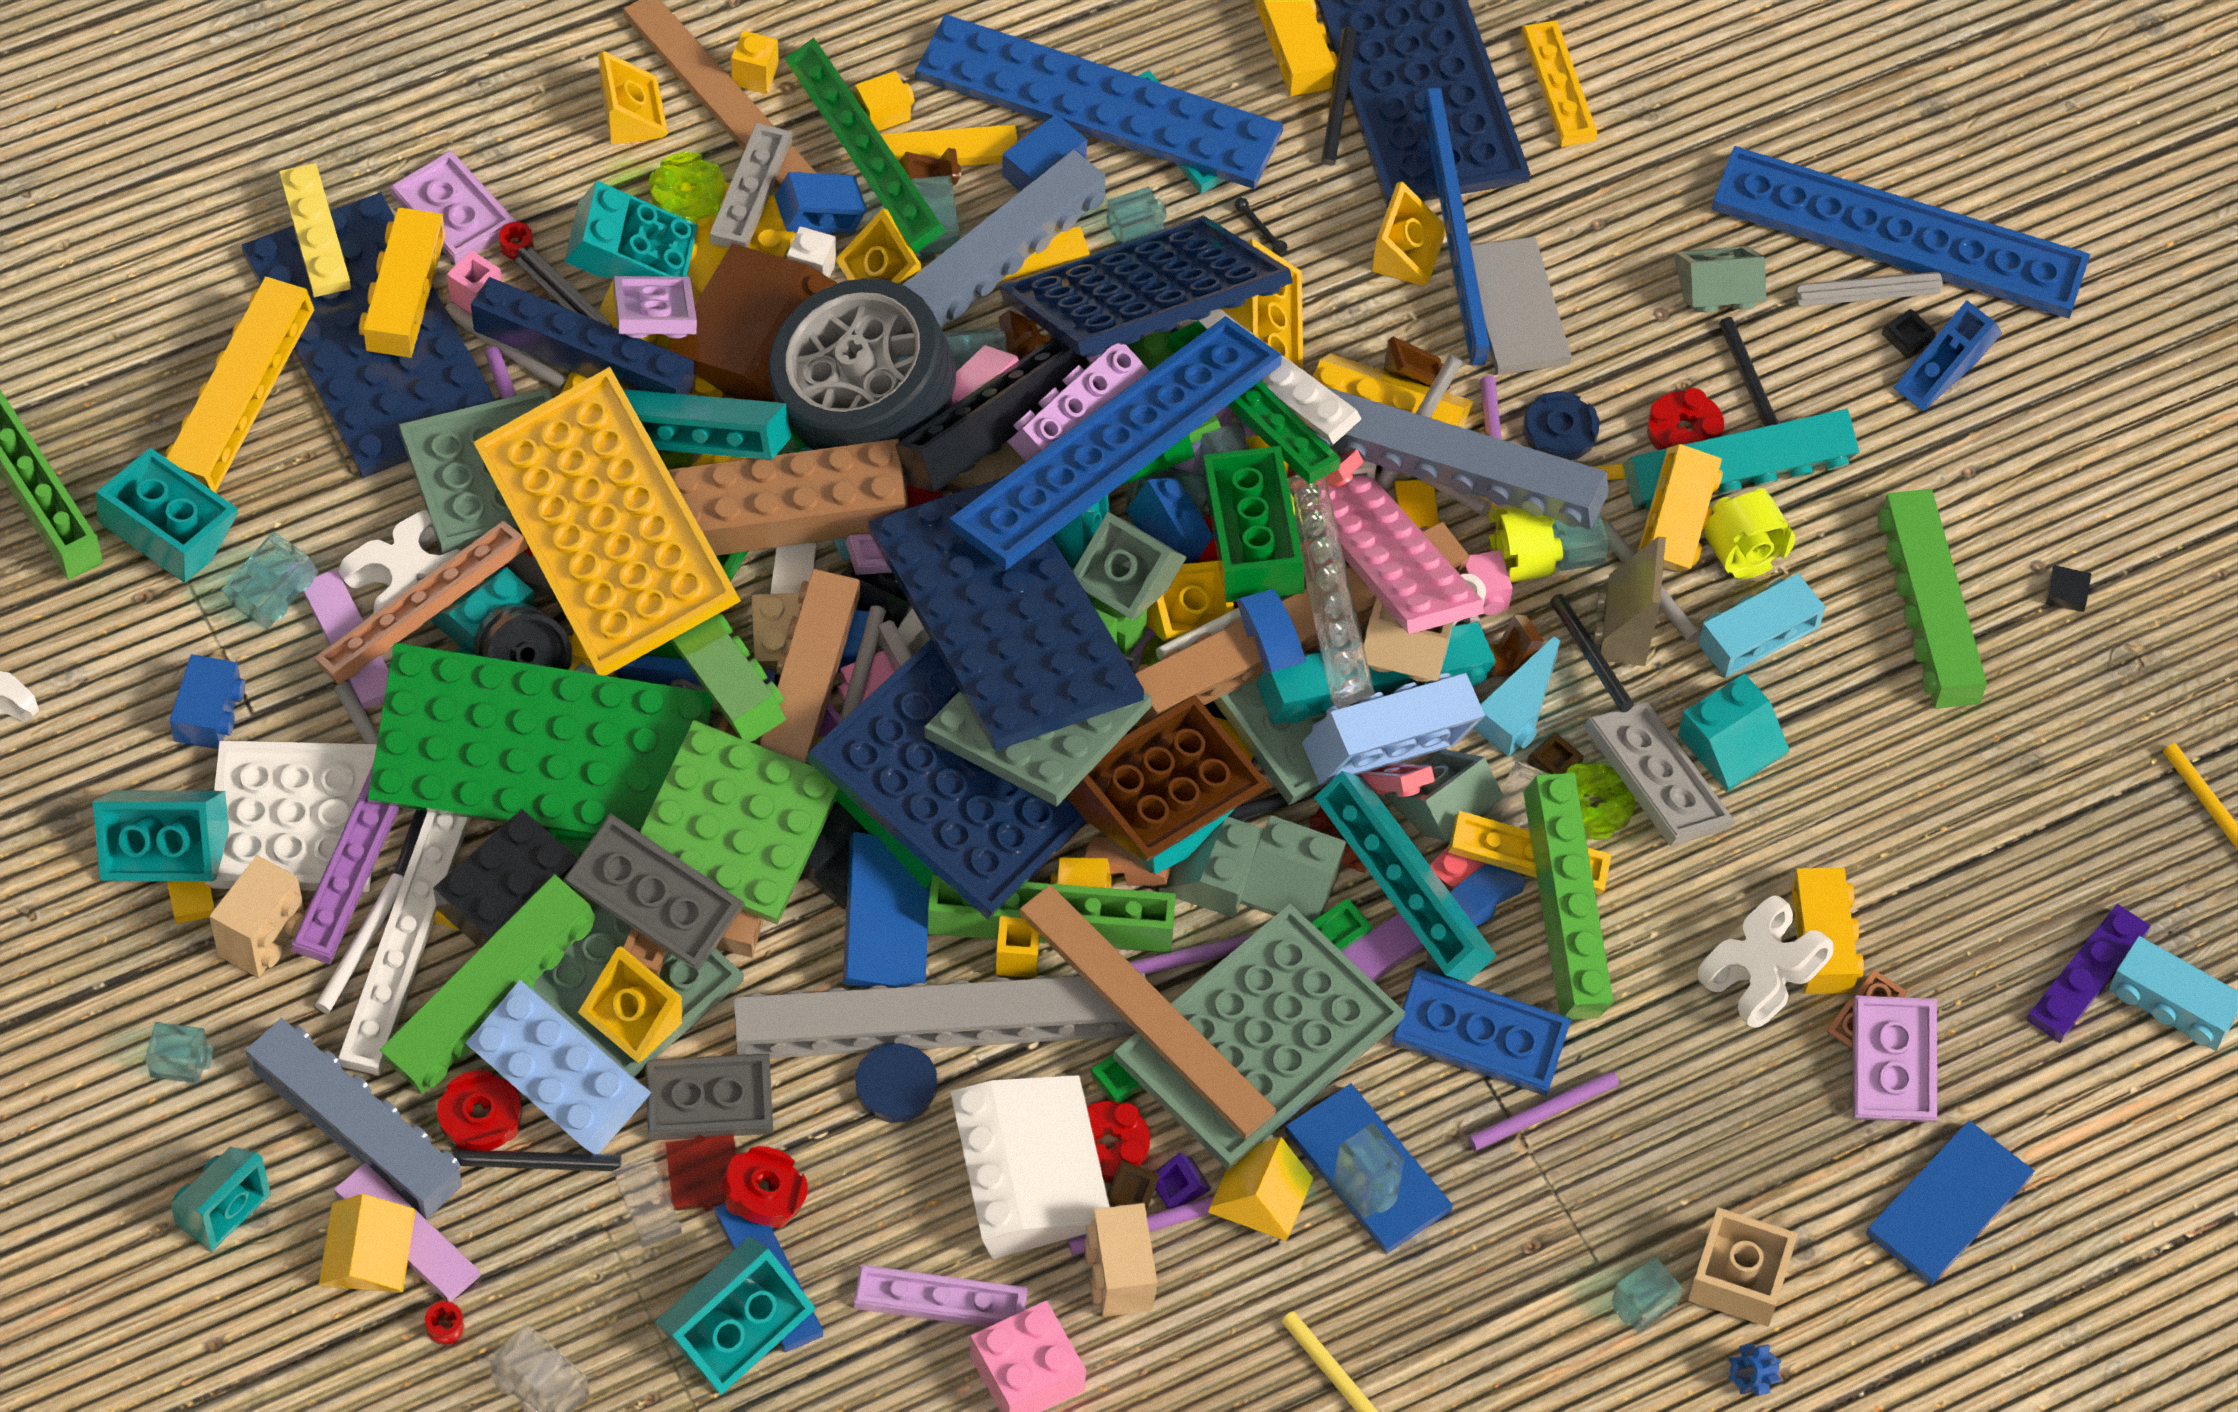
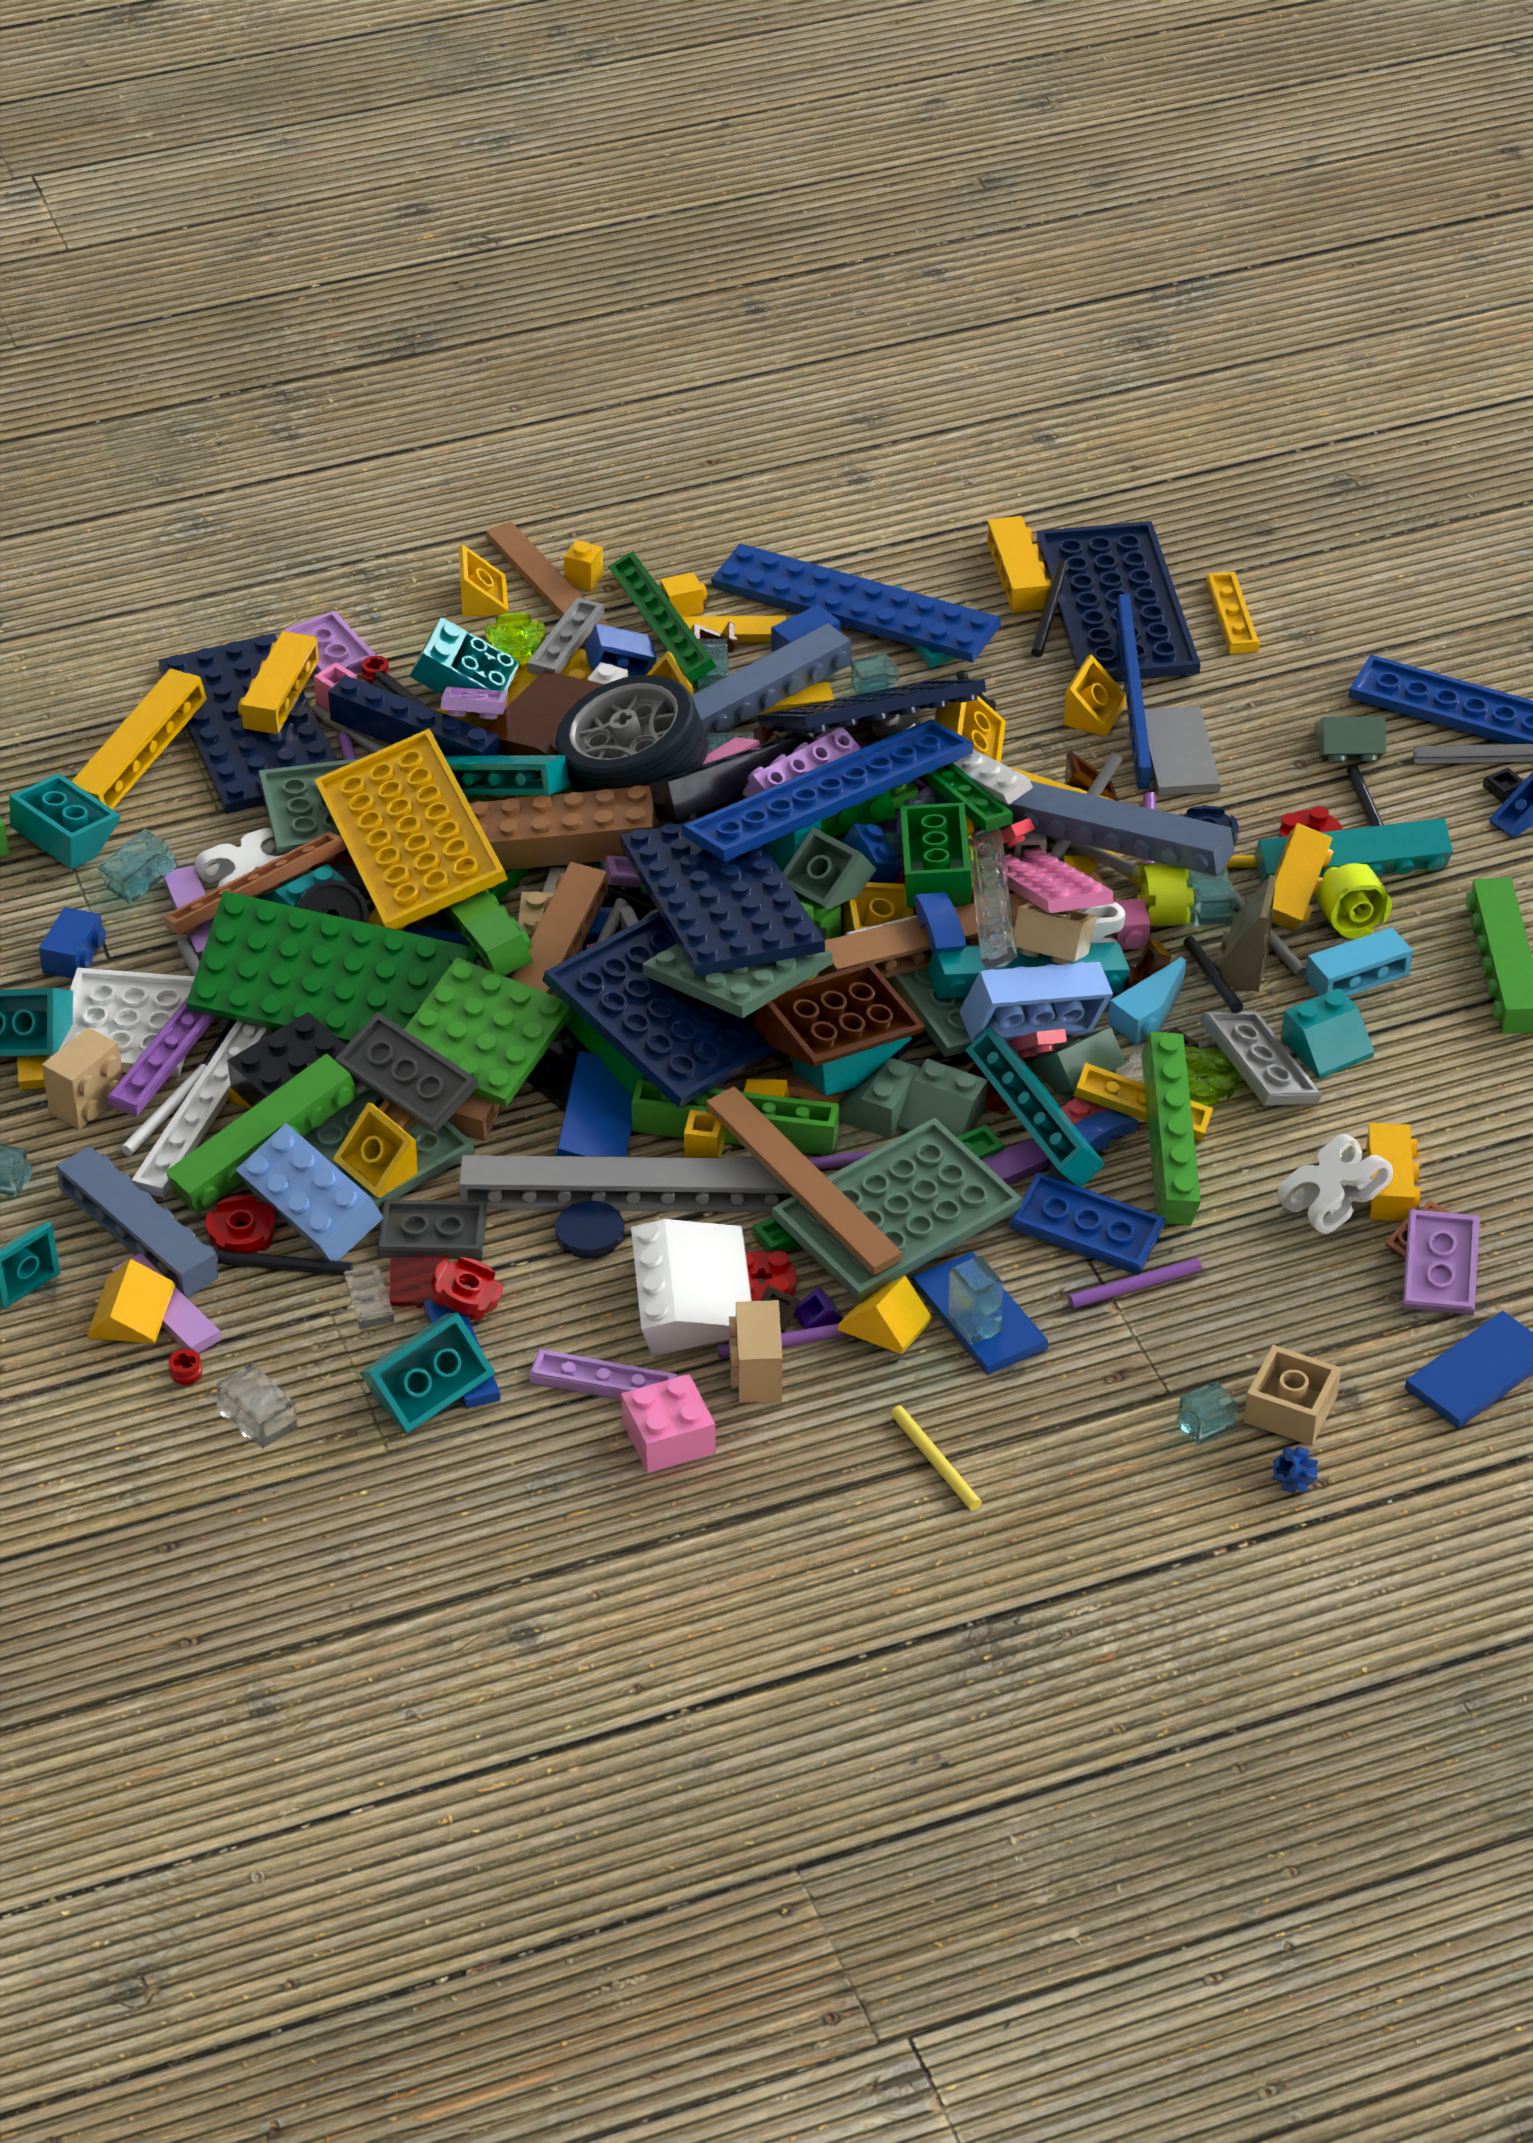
camera: 10 degrees right, 15 degrees down
(315, 230) = (216, 649): light yellow plate -> none

